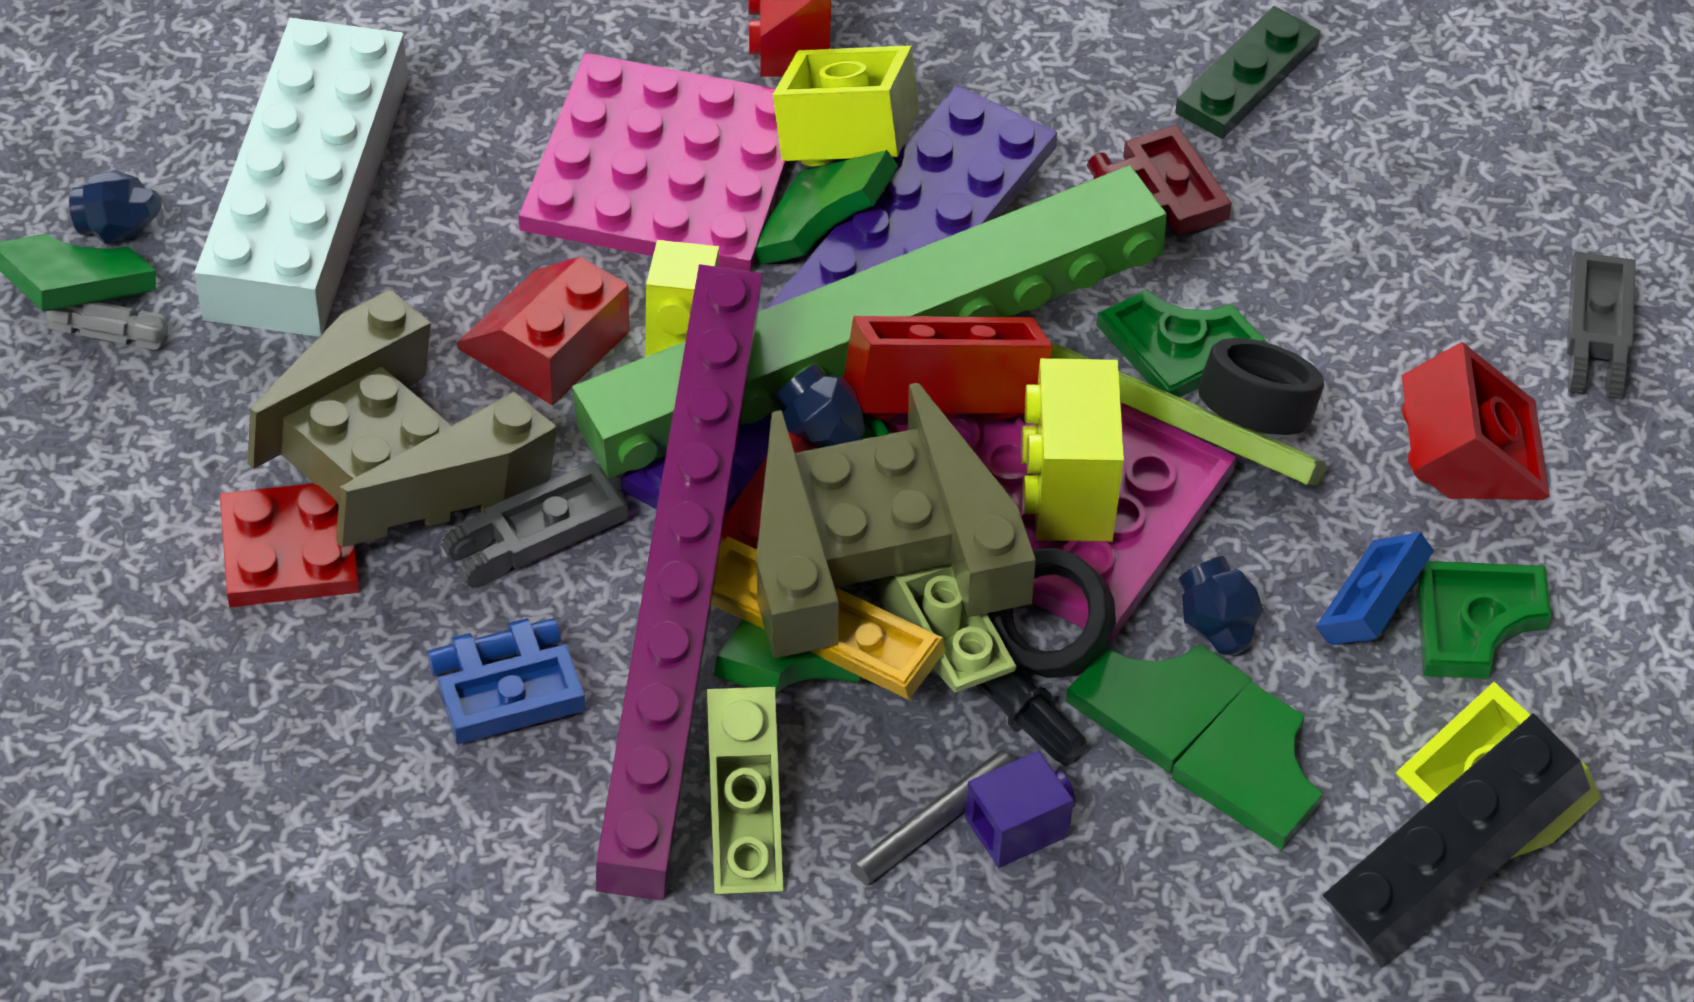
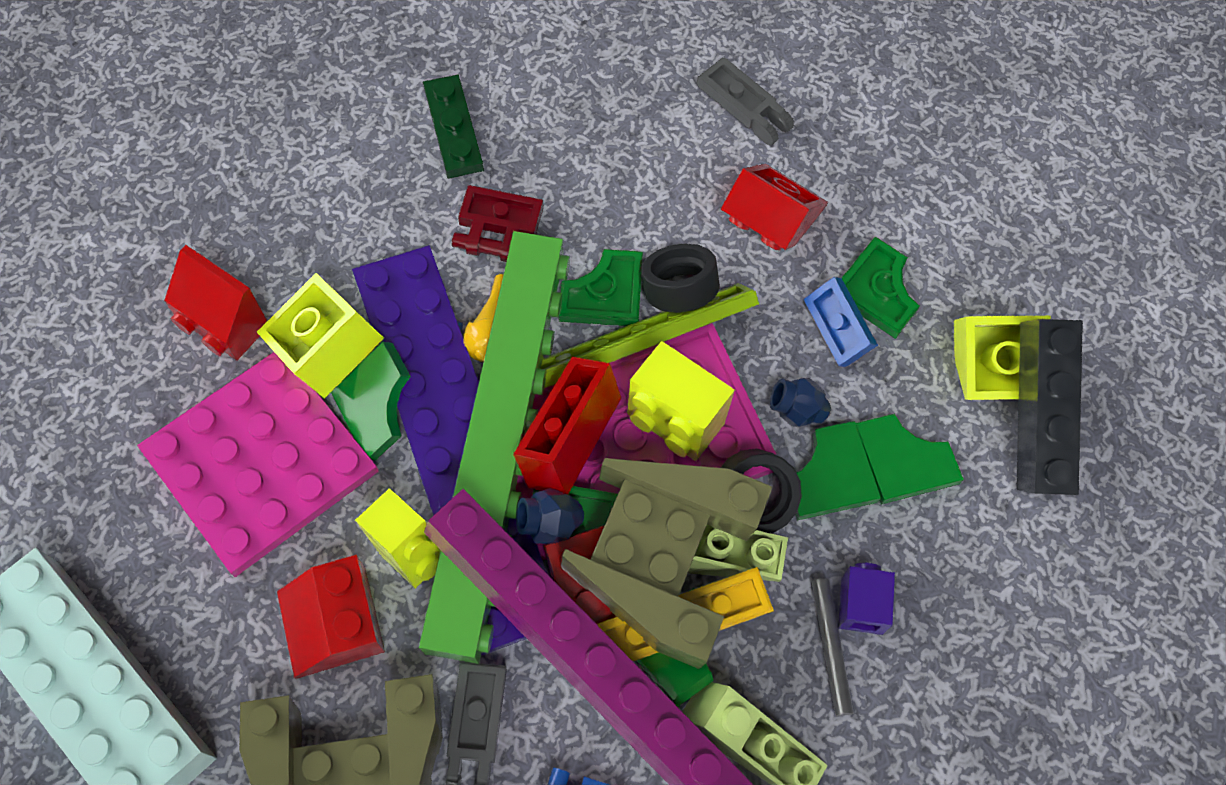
camera: 55 degrees left, 15 degrees up
(1032, 711) = (813, 544): black axle -> none

